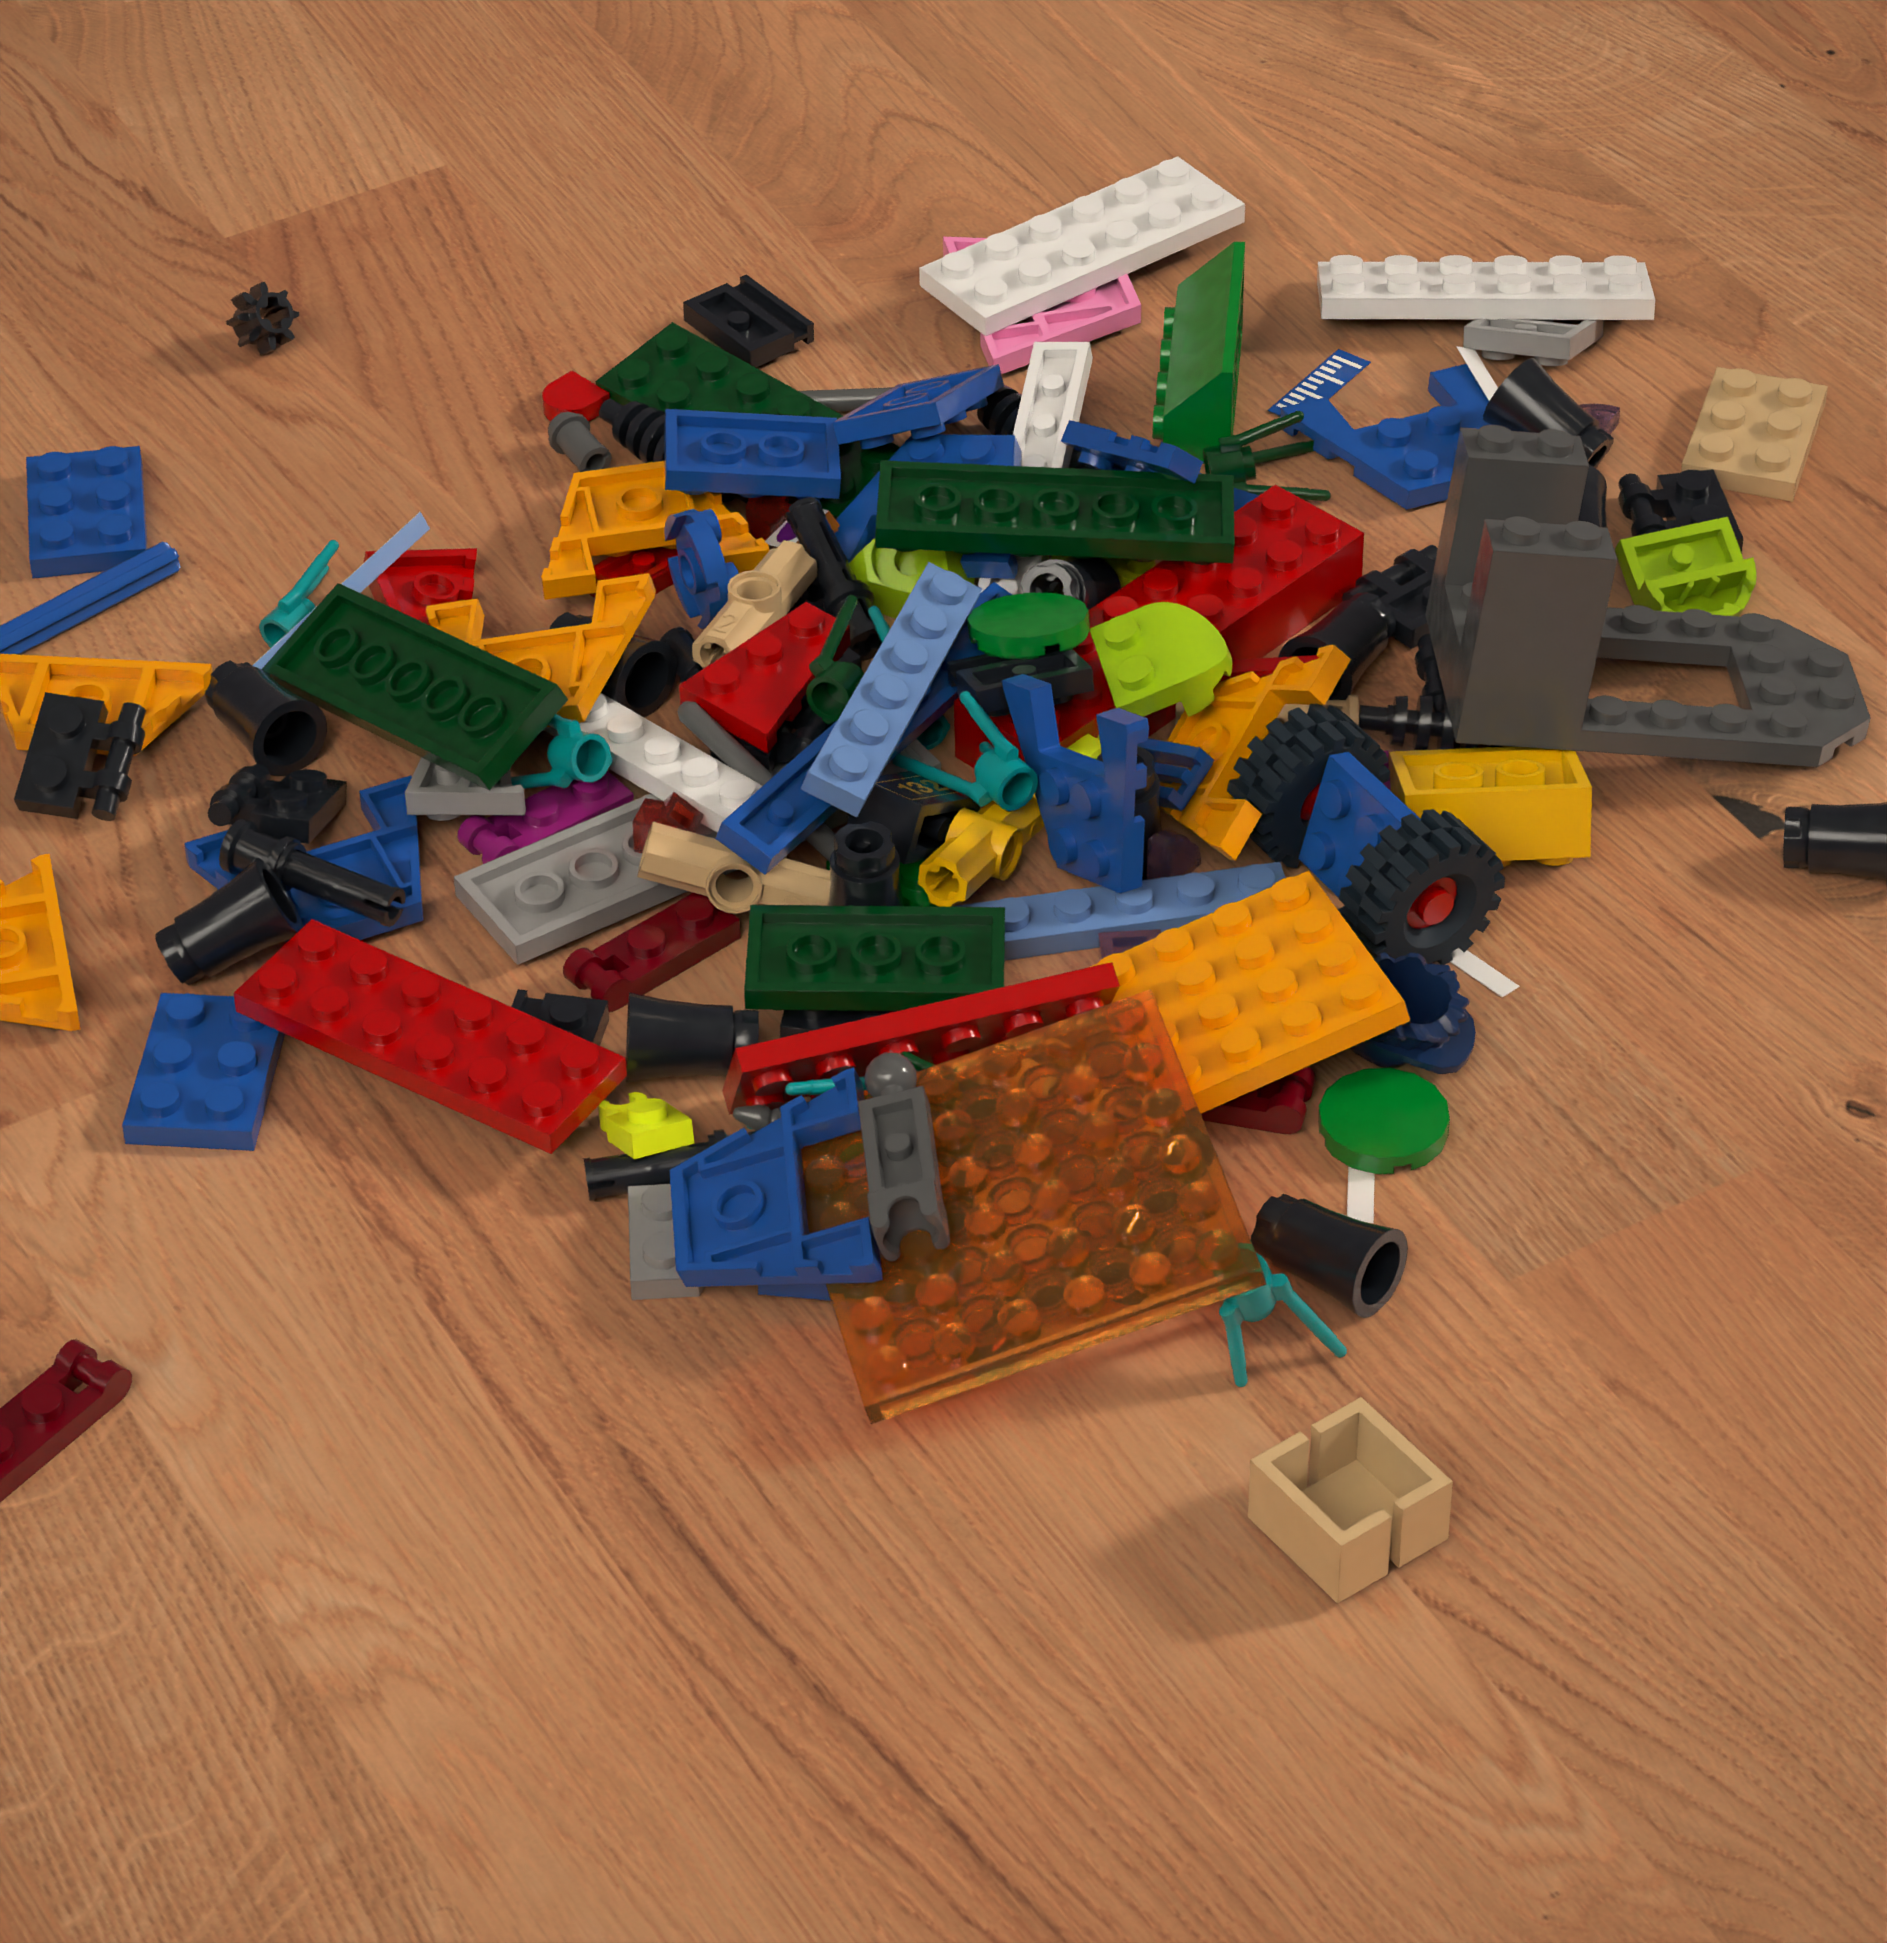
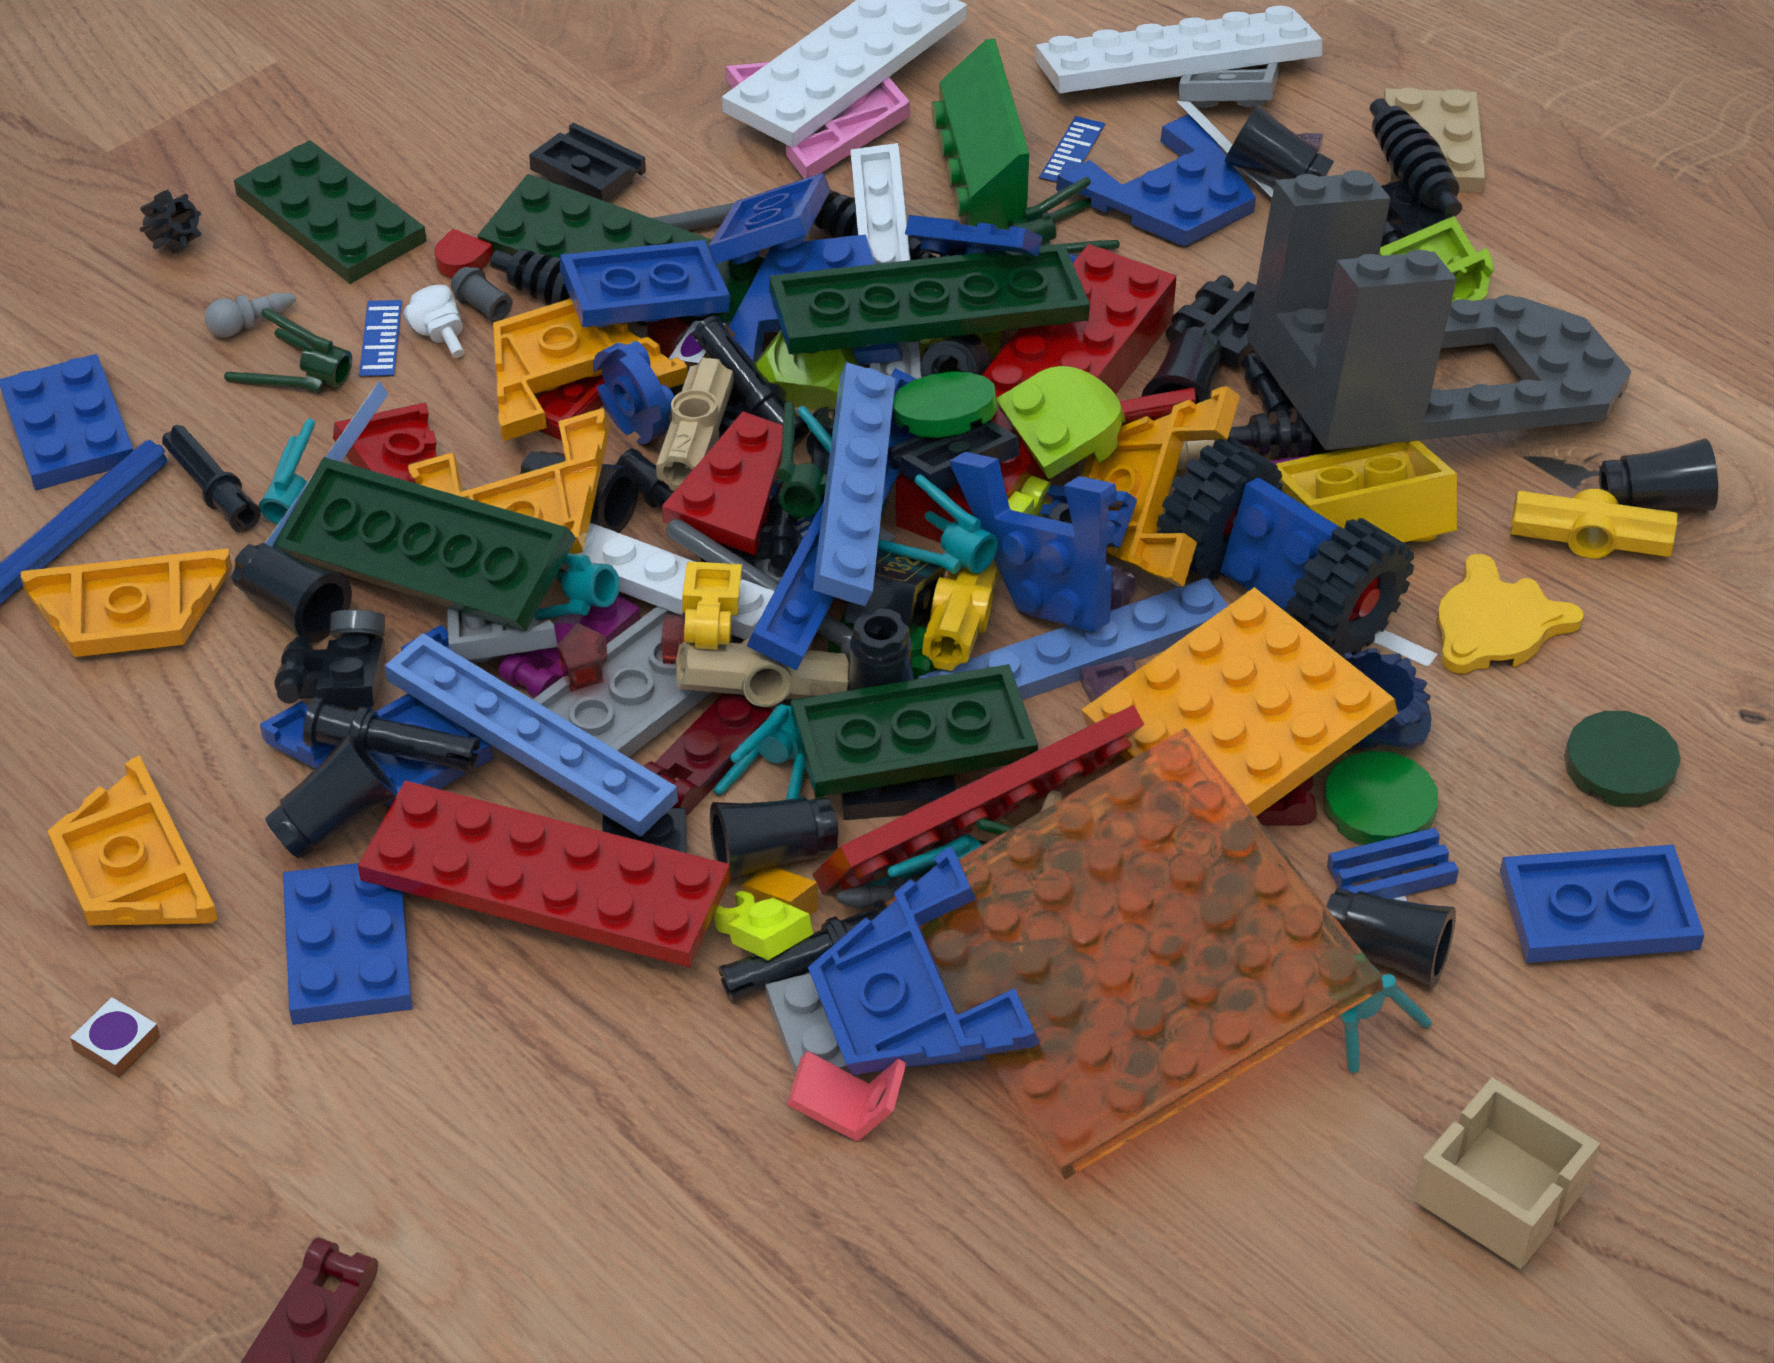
camera: 15 degrees left, 5 degrees up
(64, 752) = (122, 657): black plate -> none
(224, 602) = (220, 488): none -> black axle
(292, 428) = (228, 317): none -> light grey bar
(322, 757) = (357, 622): none -> dark grey tile
(376, 486) = (319, 359): none -> dark green plant
(445, 333) = (330, 211): none -> dark green plate
(455, 476) = (380, 338): none -> blue sticker
(462, 896) = (532, 734): none -> medium blue plate
(521, 460) = (435, 315): none -> white piece
(546, 828) = (582, 657): none -> clear red piece
(661, 1304) = (843, 1099): none -> coral bracket
(687, 785) = (709, 602): none -> yellow plate
(689, 1098) = (783, 886): none -> light orange piece
(725, 953) = (776, 743): none -> teal plant
(900, 1157) = (1023, 923): dark grey plate -> none
(1372, 1188) = (1388, 861): none -> blue tile
(1585, 1264) = (1601, 903): none -> blue plate
(1602, 959) = (1498, 619): none -> yellow tile
(1681, 1124) = (1622, 758): none -> dark green tile
(1707, 445) = (1415, 157): none -> black piece
(1754, 874) = (1593, 523): none -> yellow piece

